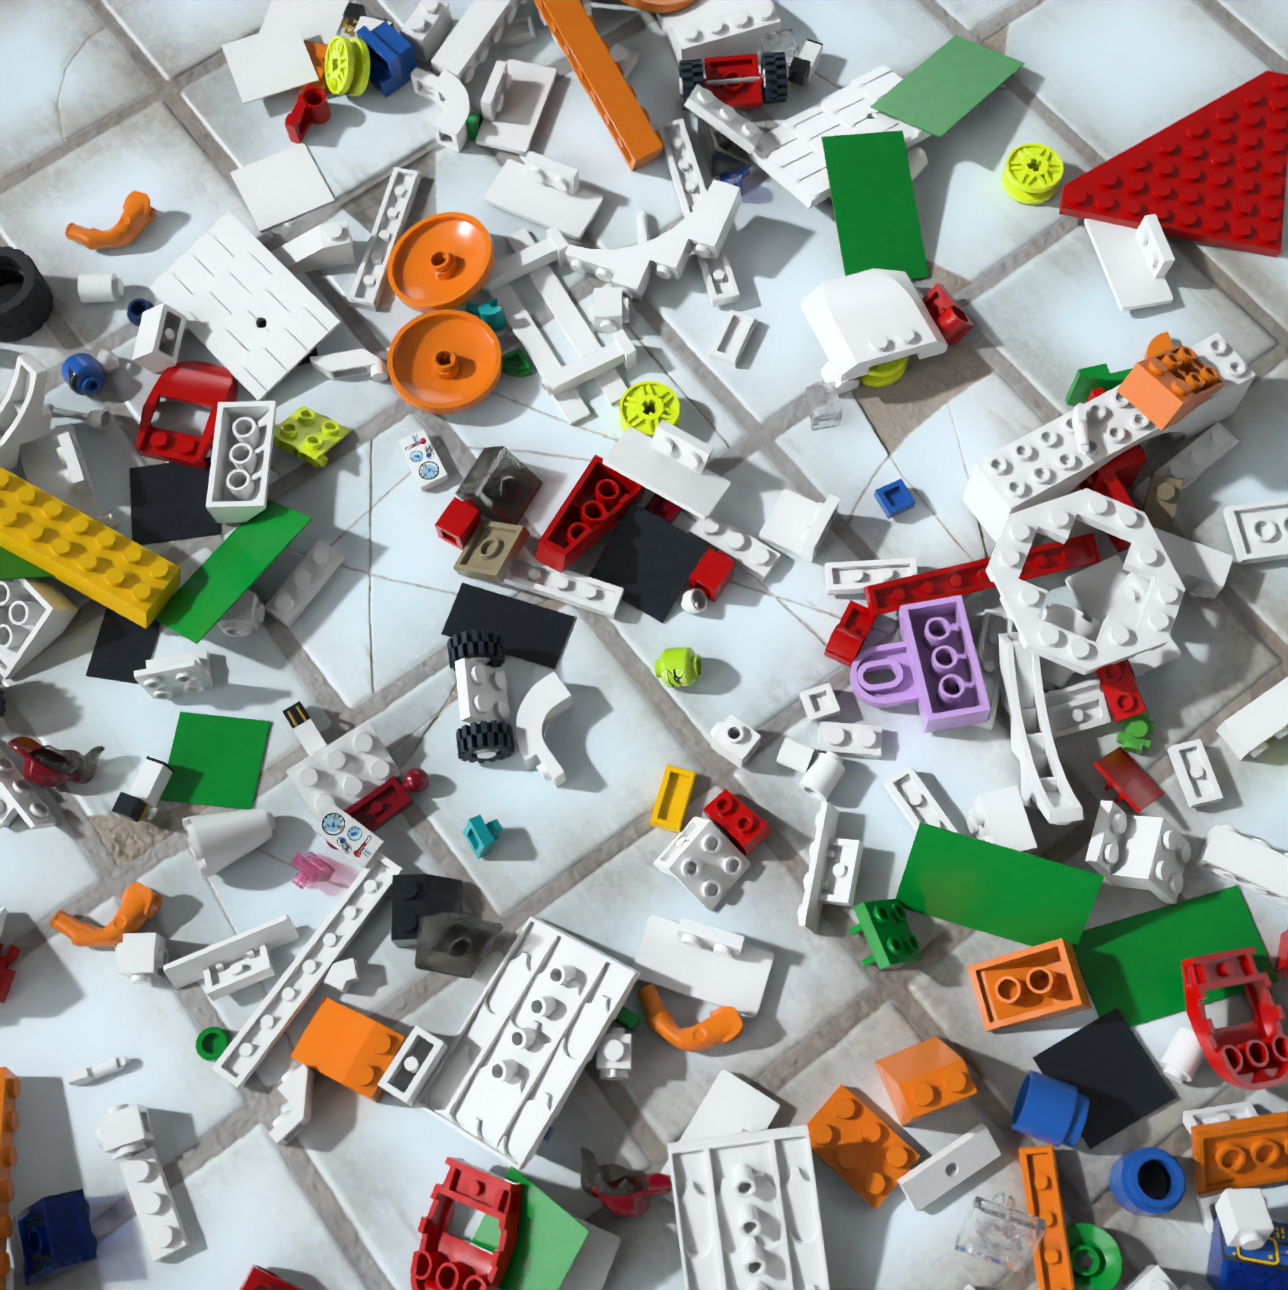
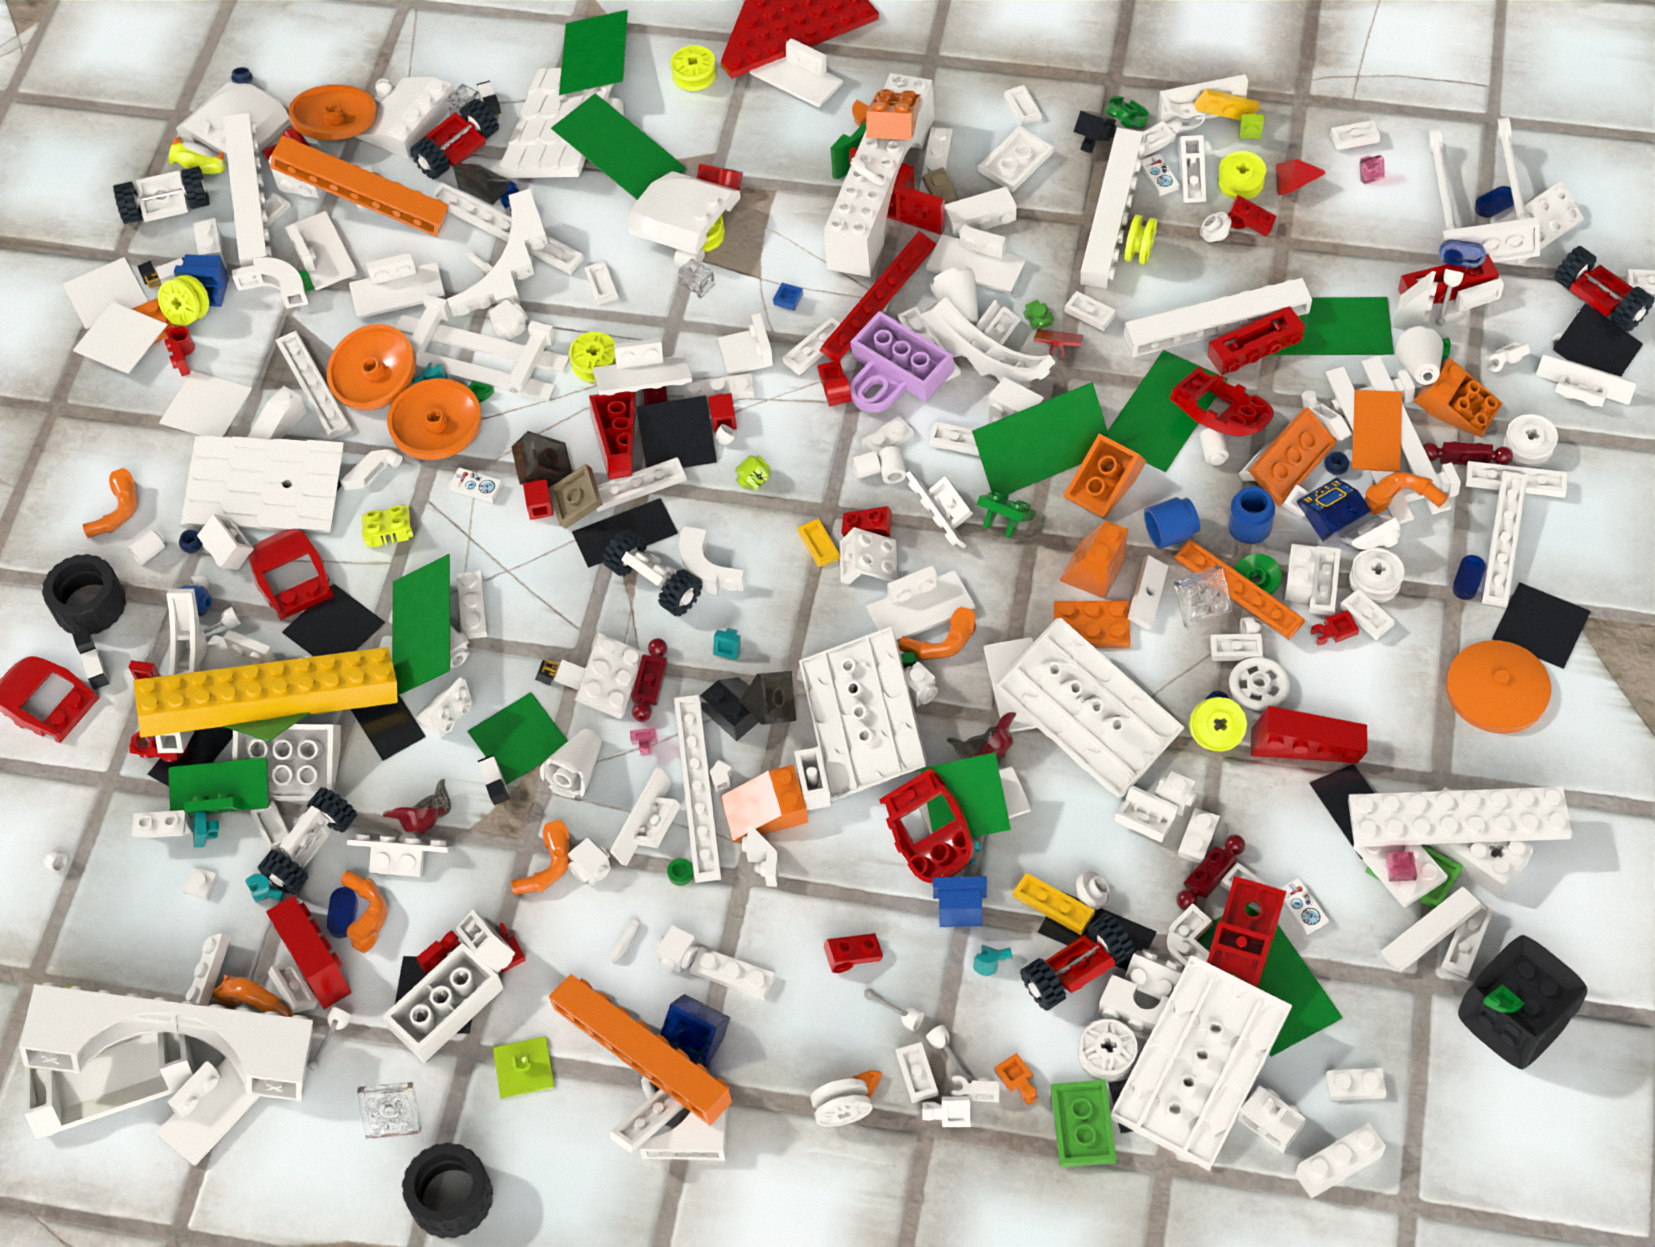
camera: 40 degrees left, 10 degrees down
(241, 460) = (363, 563): white slope -> none
(347, 835) = (649, 700): white tile -> none
(723, 118) = (474, 161): white plate -> none
(734, 740) = (824, 483): white brick -> none
(820, 703) = (852, 430): white plate -> none
(1109, 1069) = (1190, 480): black piece -> none
(1121, 690) = (1009, 296): red plate -> none
(1138, 852) = (1099, 363): white bracket -> none
(1145, 558) = (920, 281): white plate -> none
(1244, 1218) = (1311, 486): white brick -> none

